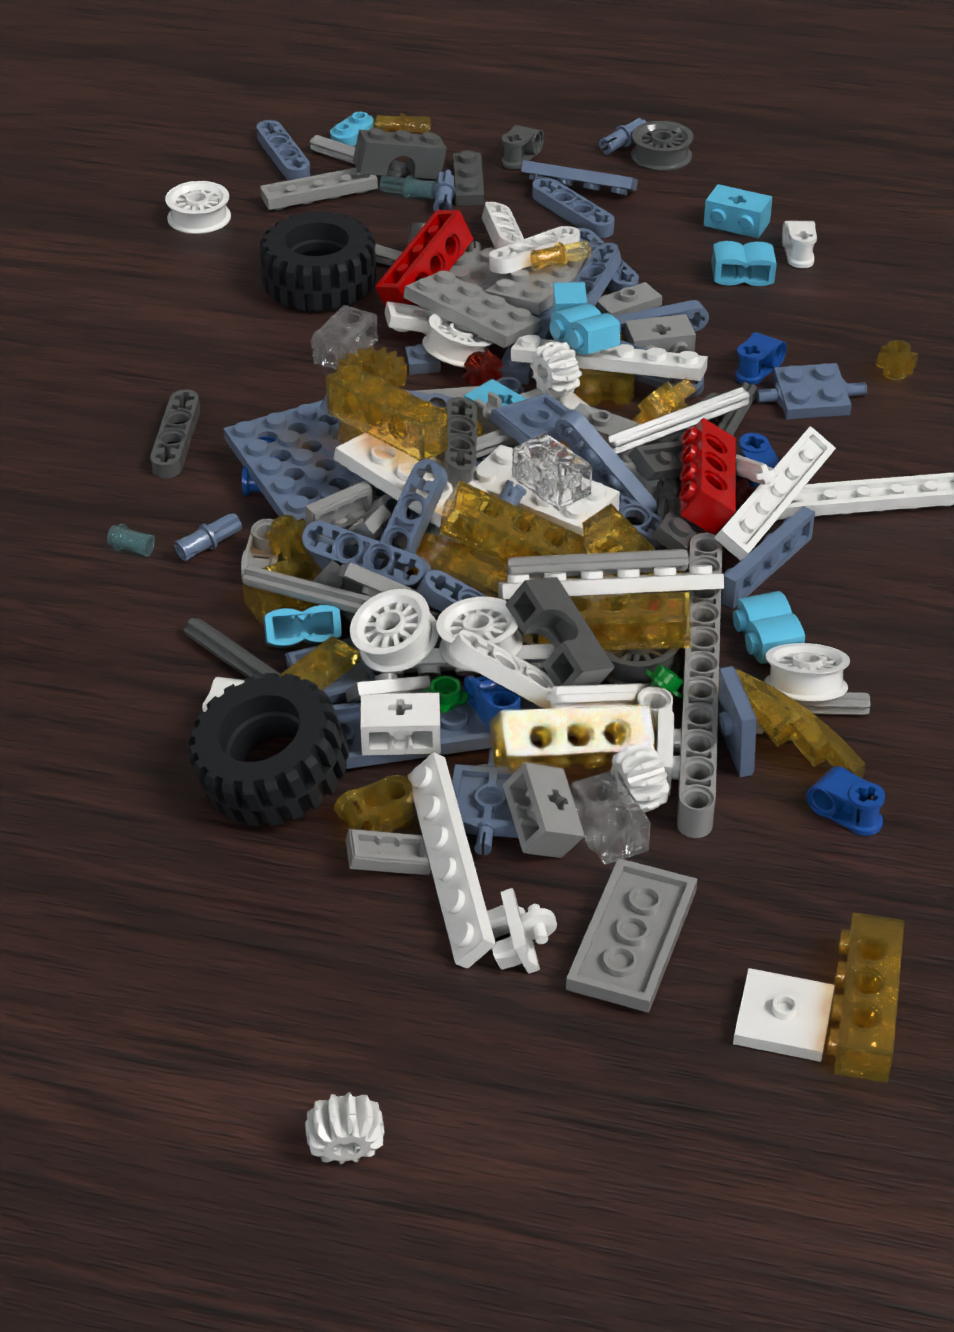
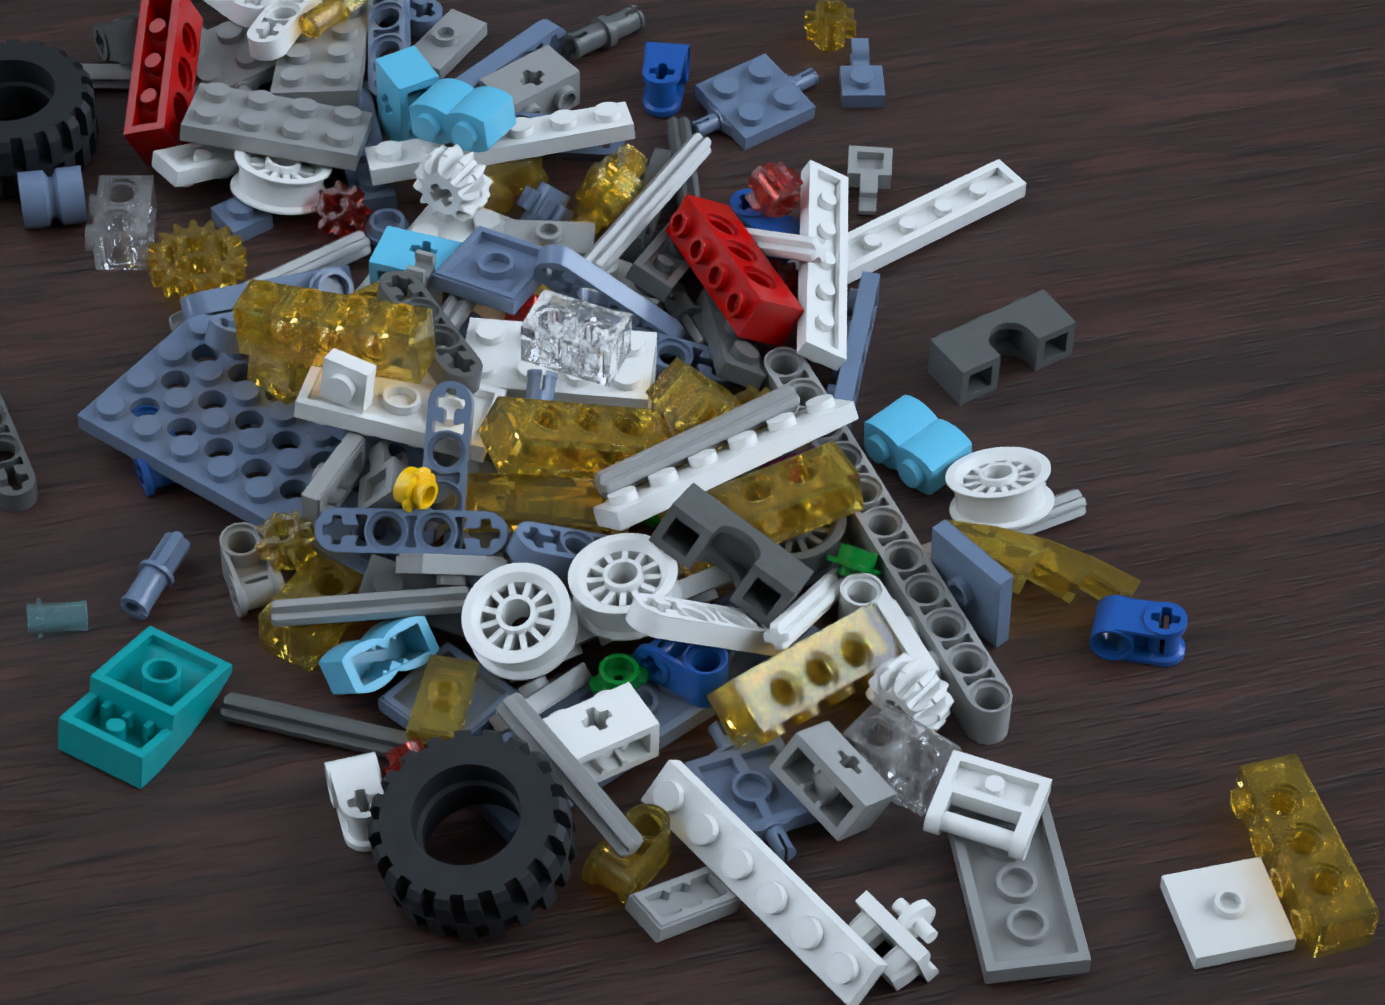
camera: 30 degrees left, 5 degrees up
(139, 607) = (142, 706): none -> teal slope
(306, 310) = (52, 197): none -> sand blue wheel
(355, 735) = (577, 782): none -> light grey axle
(372, 519) = (415, 488): none -> yellow plate
(373, 443) = (348, 380): none -> white plate
(618, 403) = (544, 204): none -> sand blue gear
(651, 858) = (991, 791): none -> white plate
(737, 322) = (603, 32): none -> dark grey pin
(769, 435) = (774, 190): none -> clear red gear
(860, 453) = (870, 170): none -> light grey plate
(899, 401) = (860, 82): none -> sand blue plate
(903, 581) = (969, 356): none -> dark grey arch

